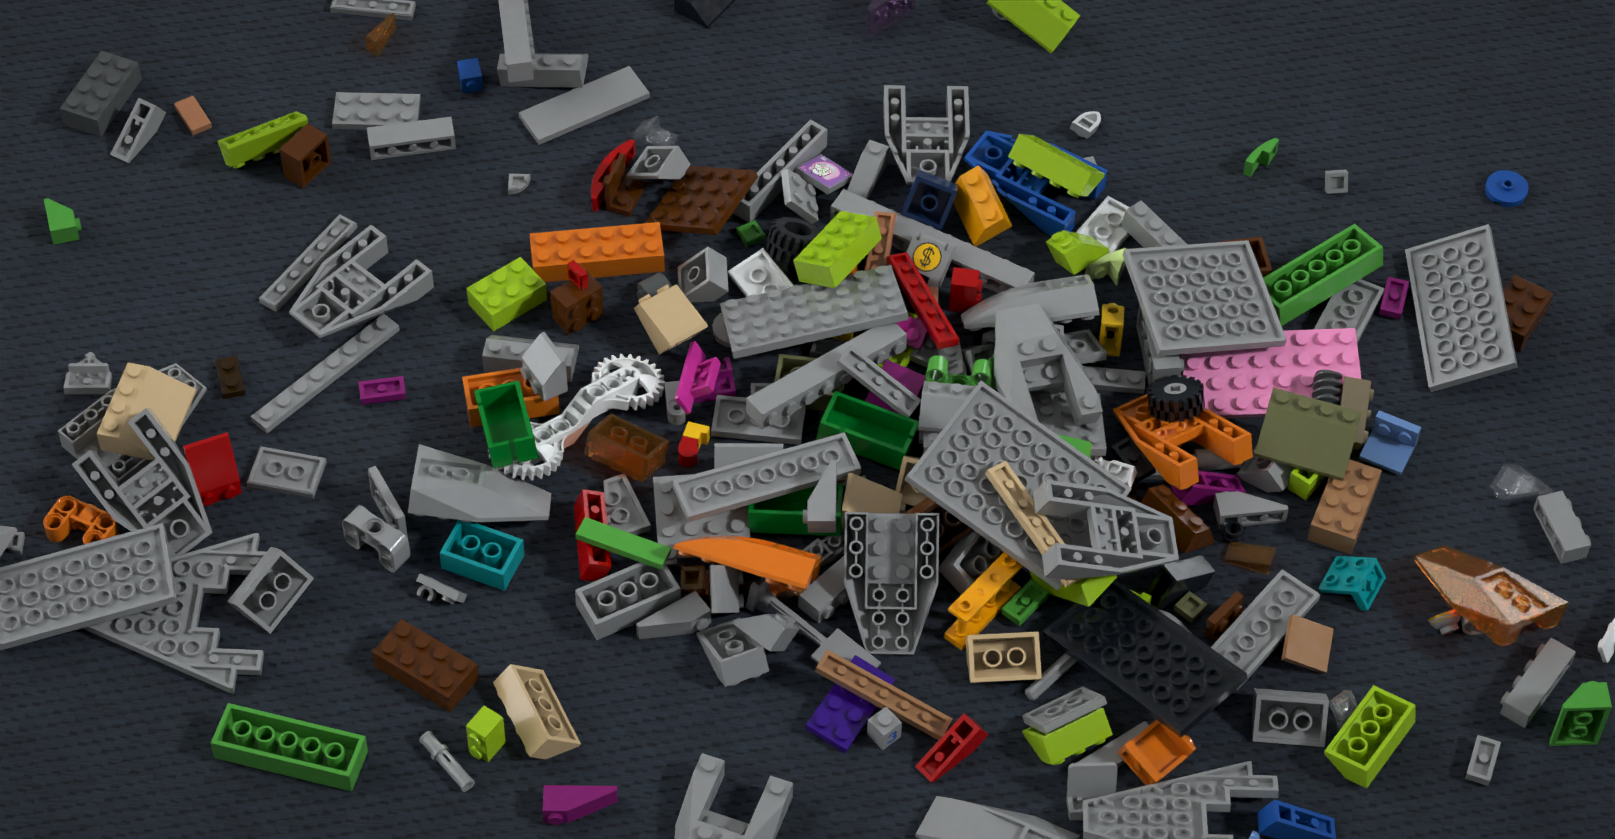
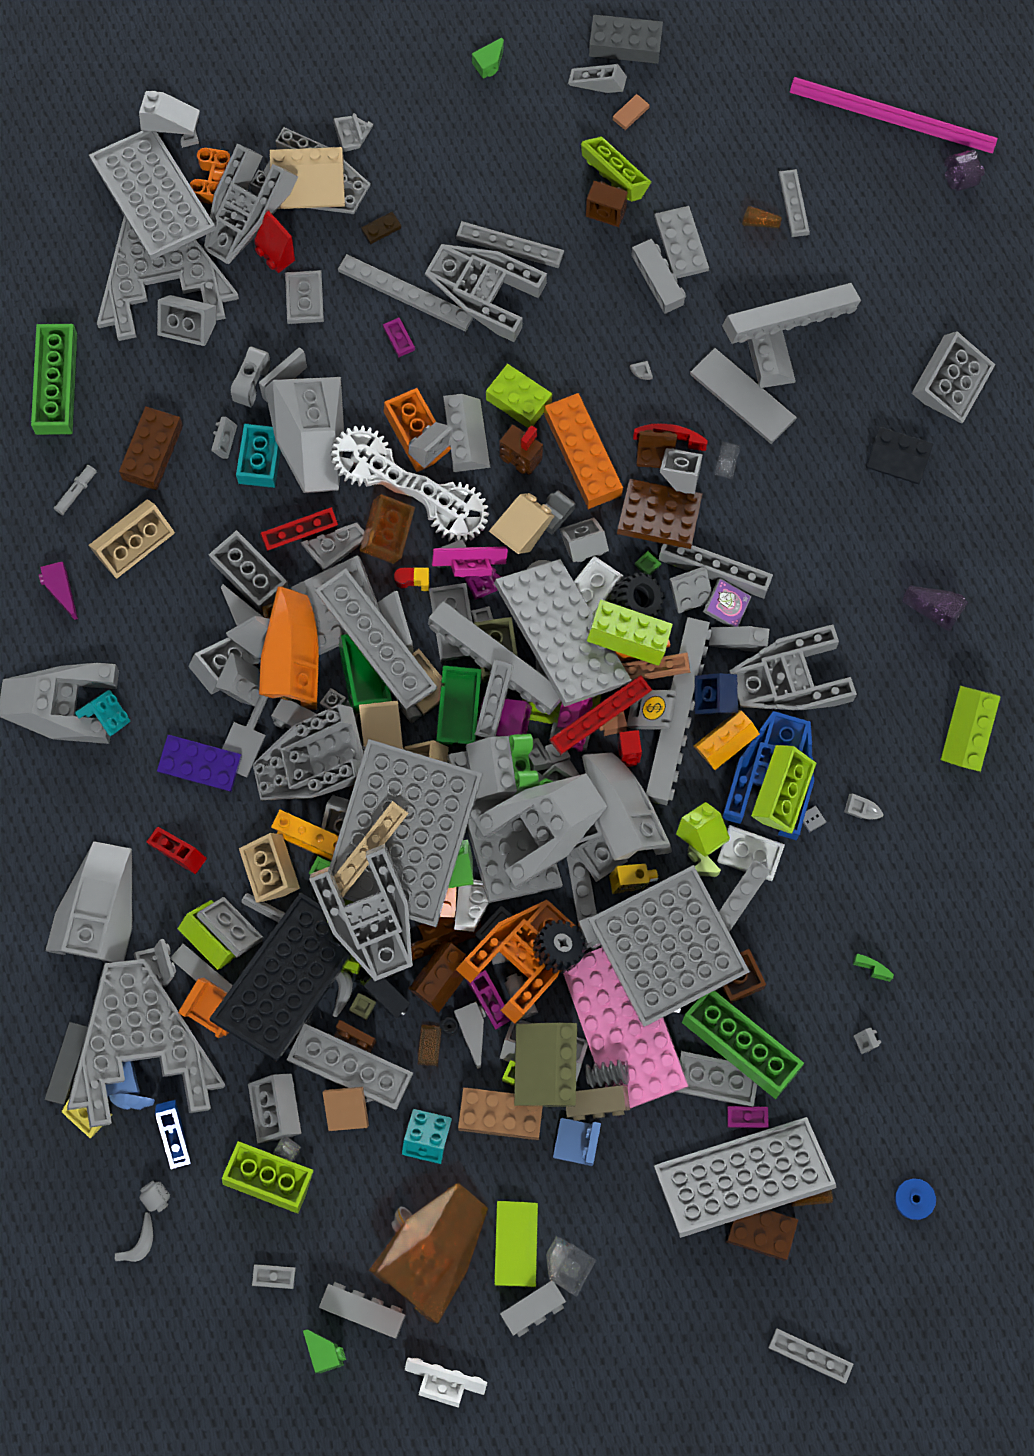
camera: 75 degrees right, 20 degrees up
(470, 75) = (740, 298): blue brick -> none
(485, 734) = (95, 507): lime brick -> none
(506, 424) = (360, 433): green piece -> none
(623, 543) = (285, 551): bright green tile -> none
(747, 784) = (107, 711): none -> teal bracket
(822, 503) = (355, 688): light grey slope -> none
(883, 694) = (205, 784): medium nougat plate -> none
(884, 728) = (180, 793): light grey brick -> none
(1488, 530) = (516, 1244): none -> lime slope

